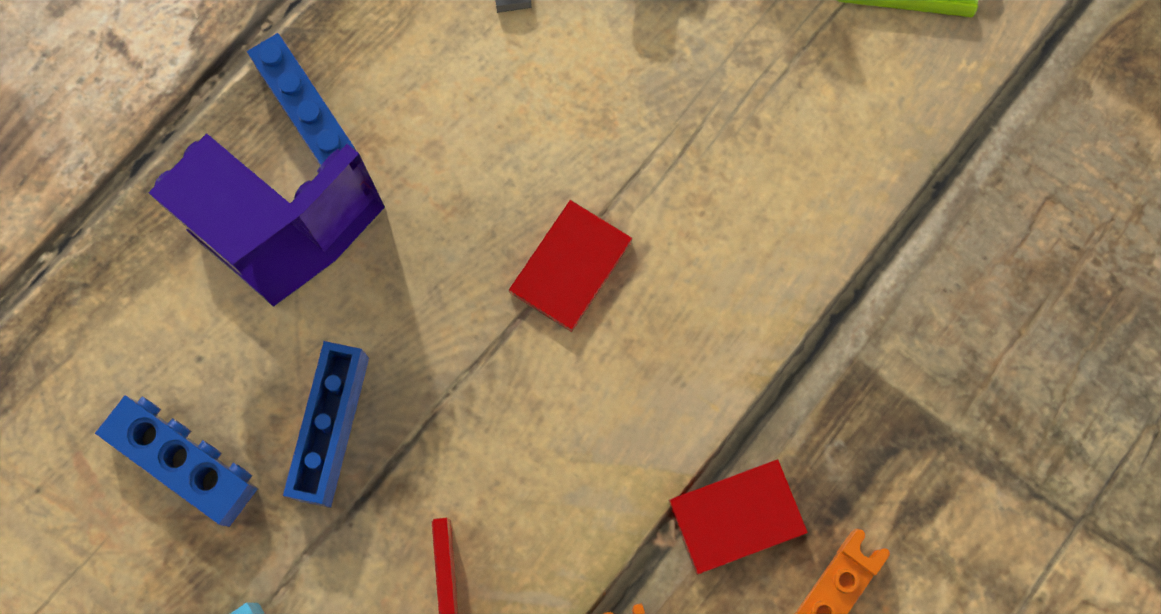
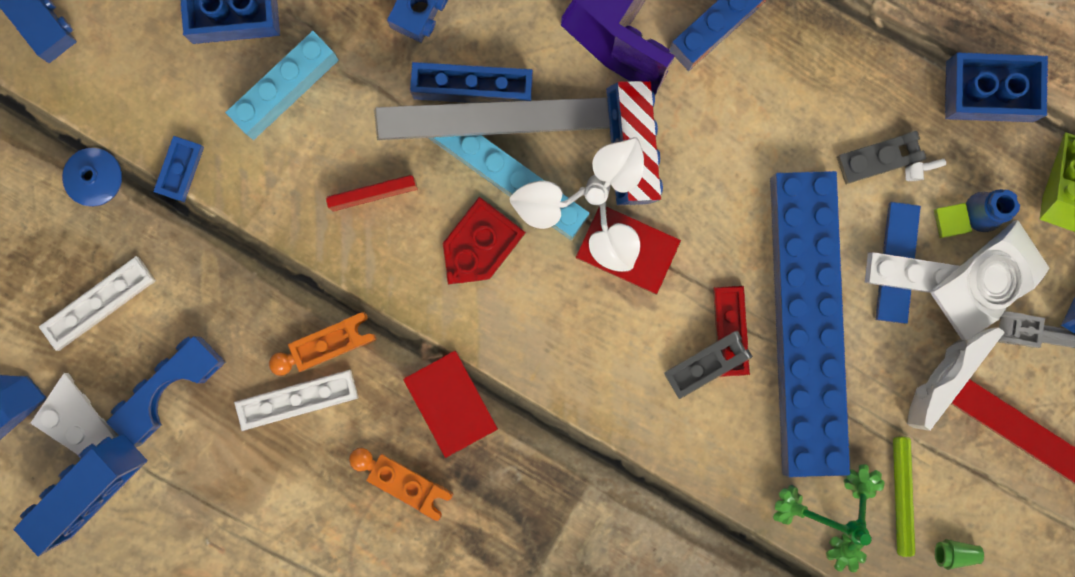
camera: 85 degrees right, 10 degrees up
(376, 409) = (490, 118): none -> light grey tile
(439, 235) = (633, 116): none -> brick
(451, 398) = (506, 174): none -> medium azure brick
(466, 249) = (614, 165): none -> white plant
(535, 449) = (479, 244): none -> red tile
(689, 160) = (731, 317): none -> red tile
(694, 67) = (809, 324): none -> blue brick
(729, 190) = (707, 365): none -> dark grey plate
(953, 42) = (856, 535): none -> bright green plant

